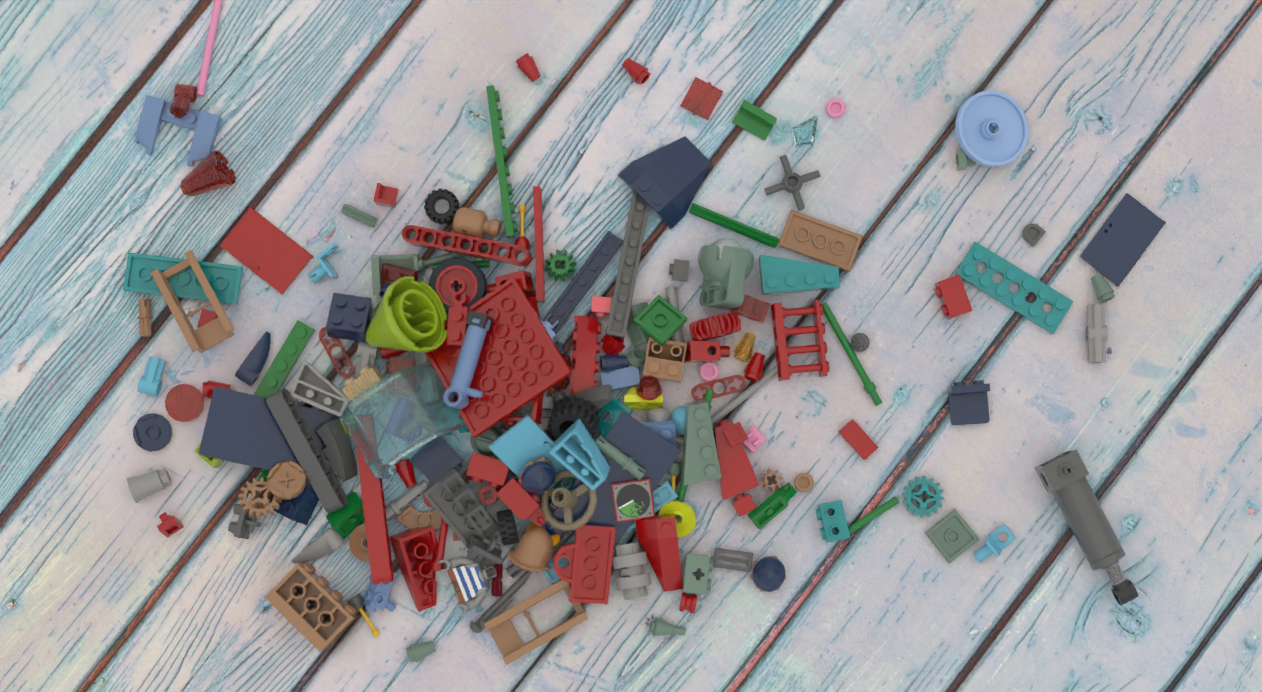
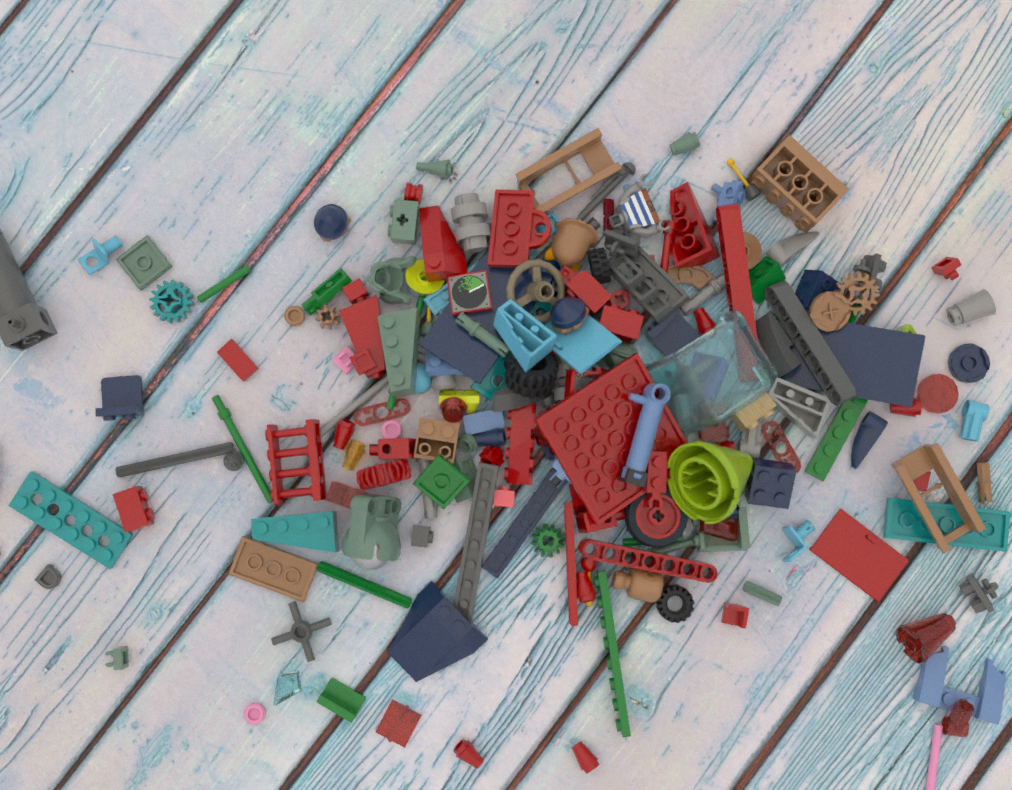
camera: 175 degrees right, 0 degrees up
(152, 207) = (982, 602): none -> dark grey hips
(526, 221) = (585, 588): none -> red cone
(712, 516) = (388, 279): none -> sand green hair
(749, 562) = (364, 237): dark grey tile -> none
(833, 521) = (264, 276): teal brick -> none
(916, 344) = (175, 459): none -> dark grey axle
(991, 128) = (85, 691): light blue dish -> none

